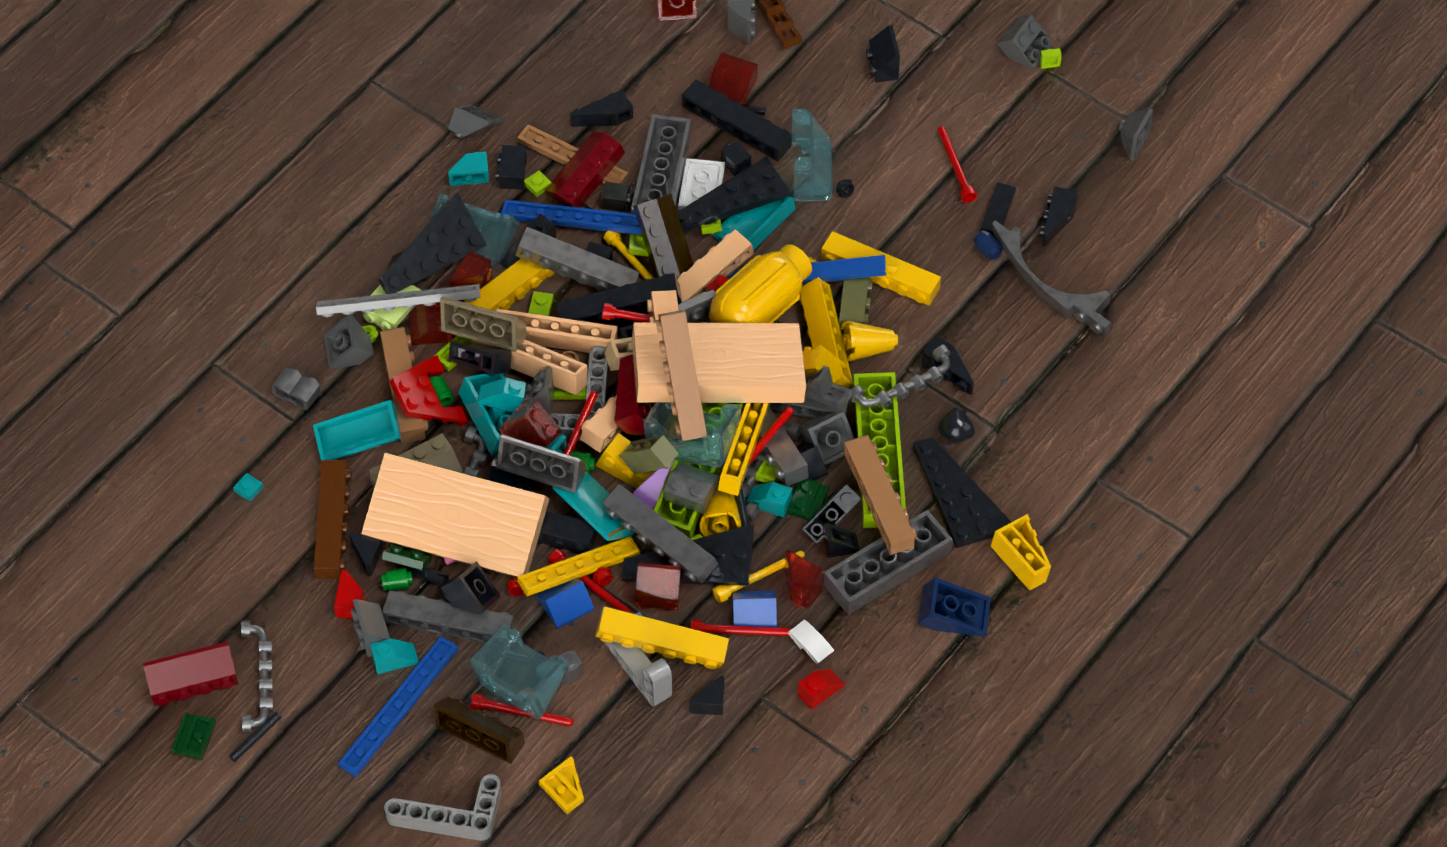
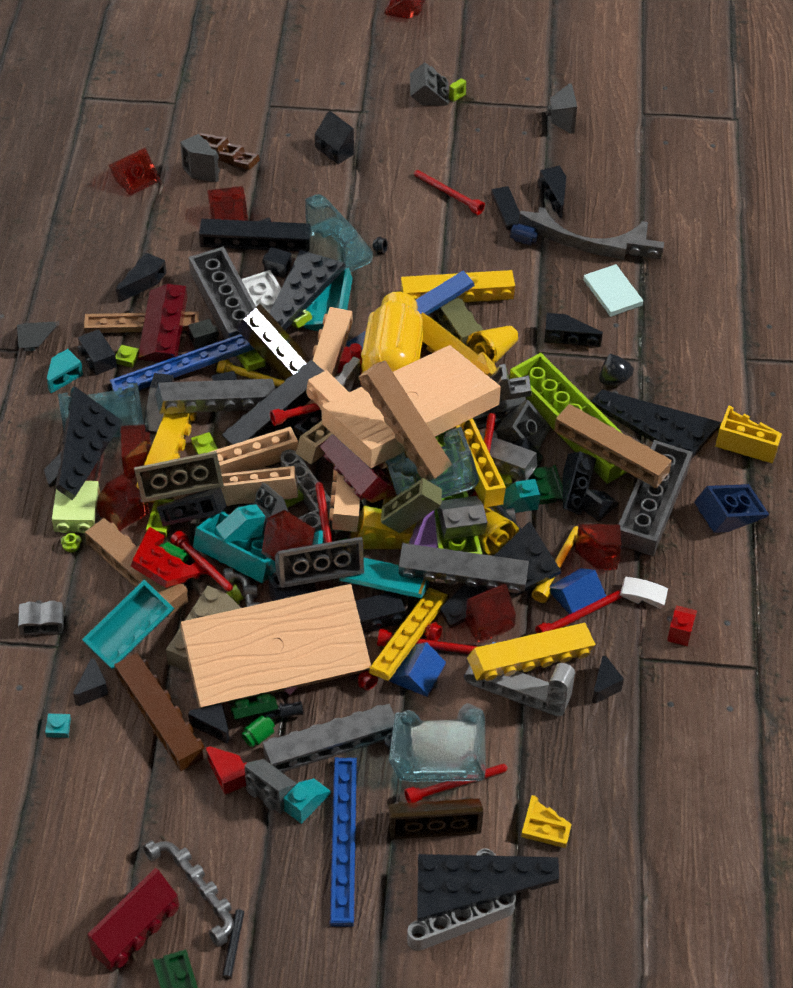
camera: 35 degrees left, 5 degrees down
(295, 467) = (91, 685): none -> black slope
(347, 344) = (59, 558): dark grey slope -> none
(390, 301) = (79, 500): light grey plate -> none
(454, 381) = (181, 540): none -> red piece
(464, 793) = (473, 880): none -> black wing
(465, 452) = (235, 594): none -> lime plate
(471, 589) = (334, 702): black slope -> none
(901, 389) = (565, 351): flat silver bar -> none
(1028, 345) = (613, 290): none -> light aqua tile

